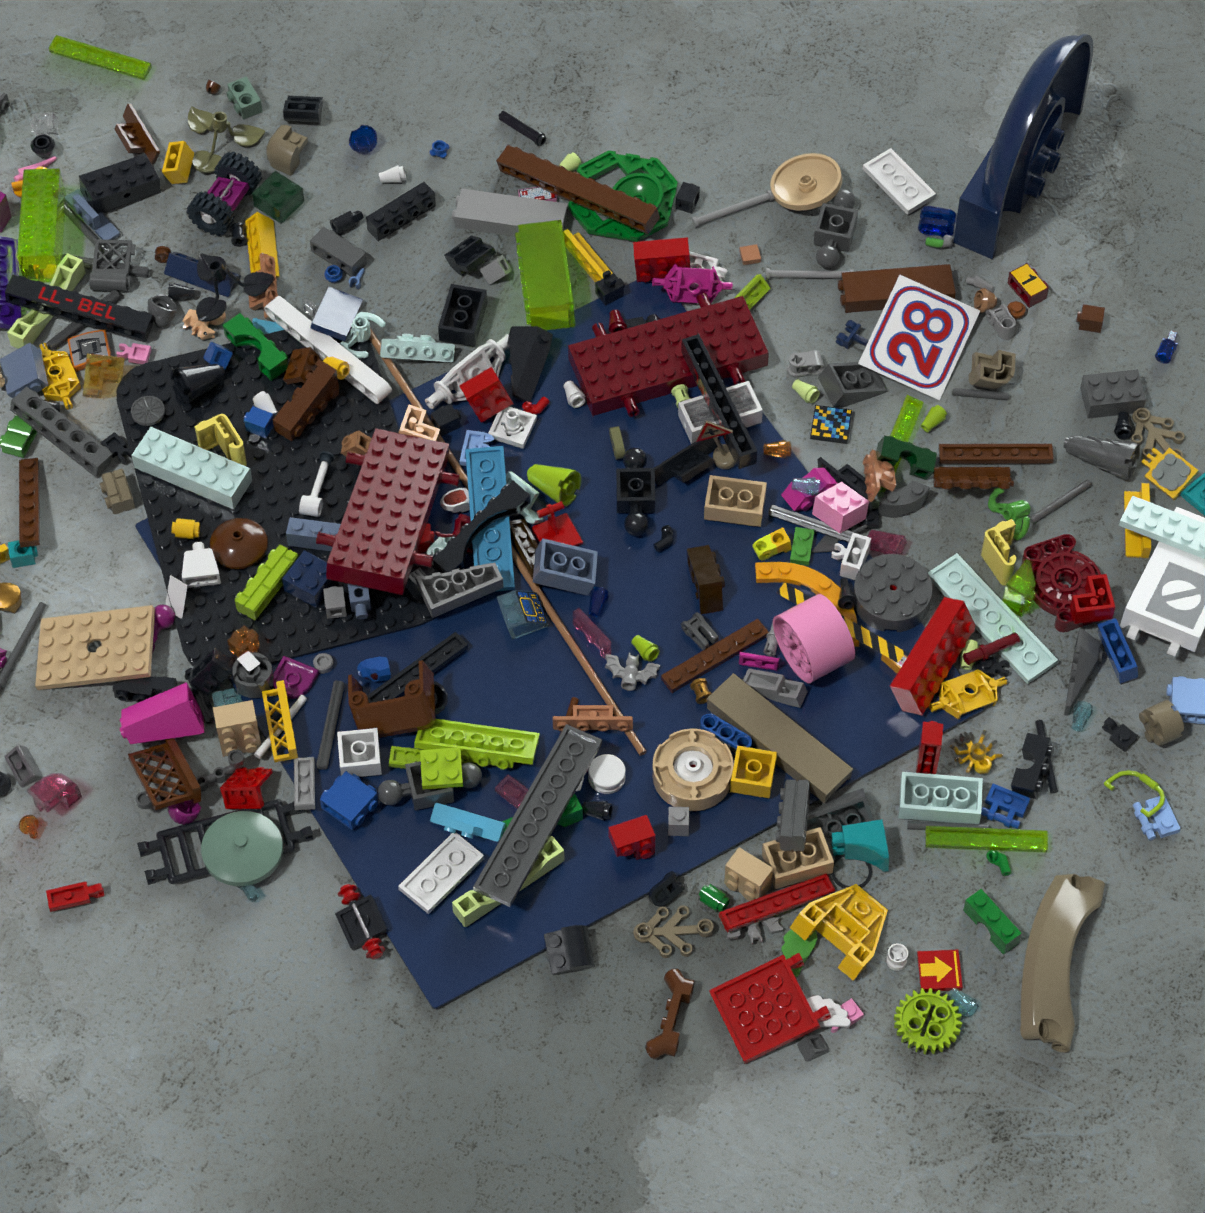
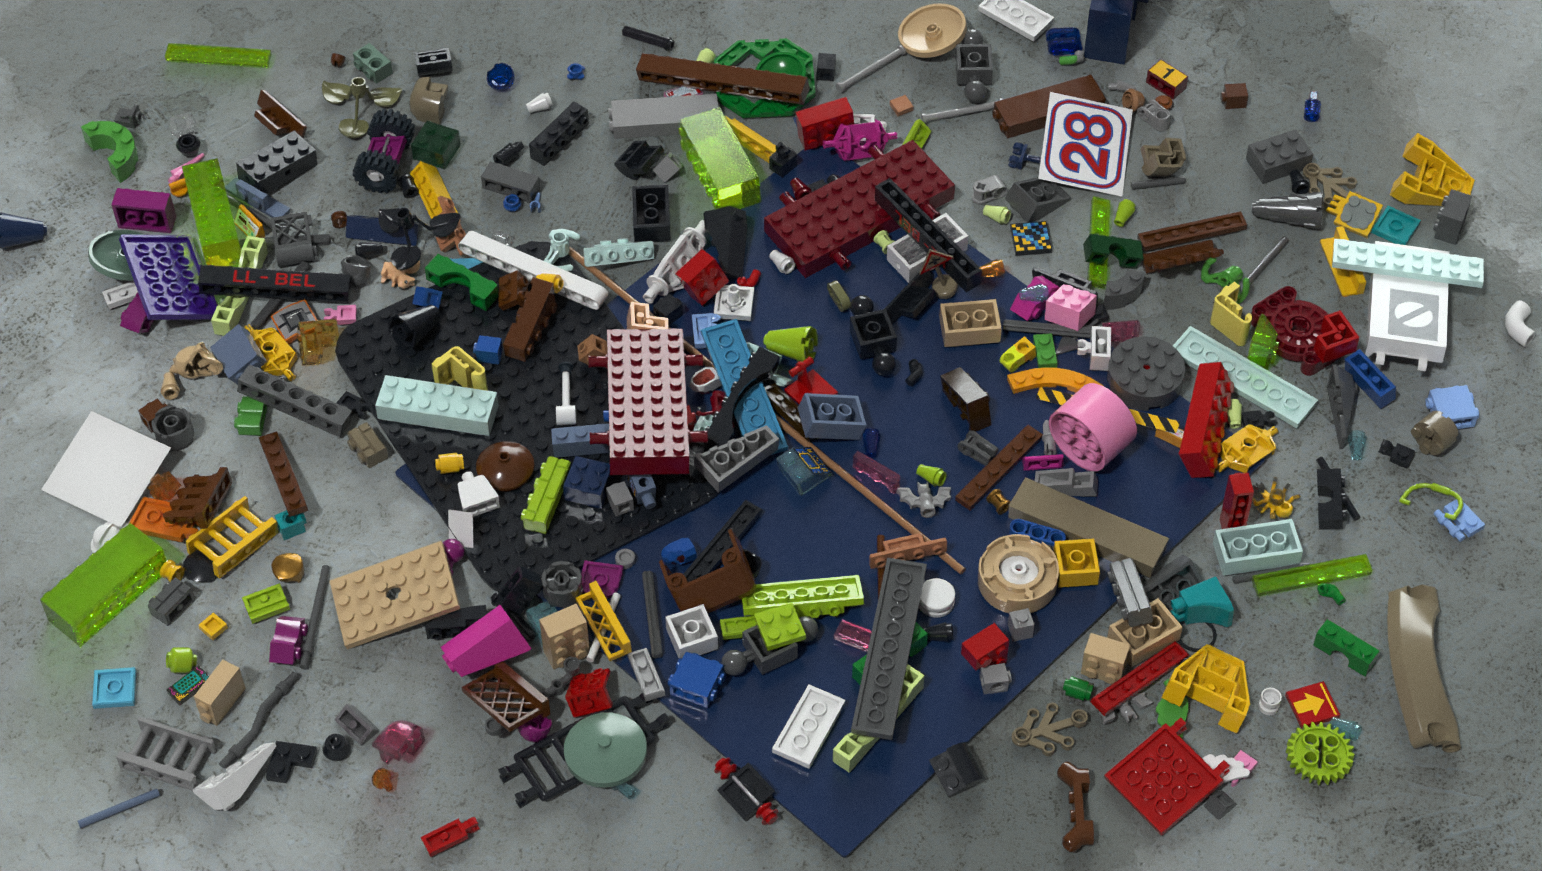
camera: 15 degrees left, 5 degrees down
(75, 240) = (248, 223): none -> slope
(147, 410) = (374, 363): dark grey wheel -> none
(178, 162) = (327, 133): yellow brick -> none
(243, 641) = (543, 554): clear orange brick -> none
(248, 661) = (555, 570): white sticker -> none
(264, 402) = (487, 329): white cone -> none
(336, 313) = (530, 236): tile -> none
(467, 822) = (819, 672): medium azure bracket -> none
(635, 869) = (995, 678): none -> light grey brick
(660, 895) = (1025, 697): black plate -> none
(846, 597) = (1103, 381): black cone -> none
(877, 474) = (1094, 271): nougat bracket -> none
(984, 651) = (1249, 406): dark red pin -> none
(1007, 801) = (1318, 536): blue plate -> none

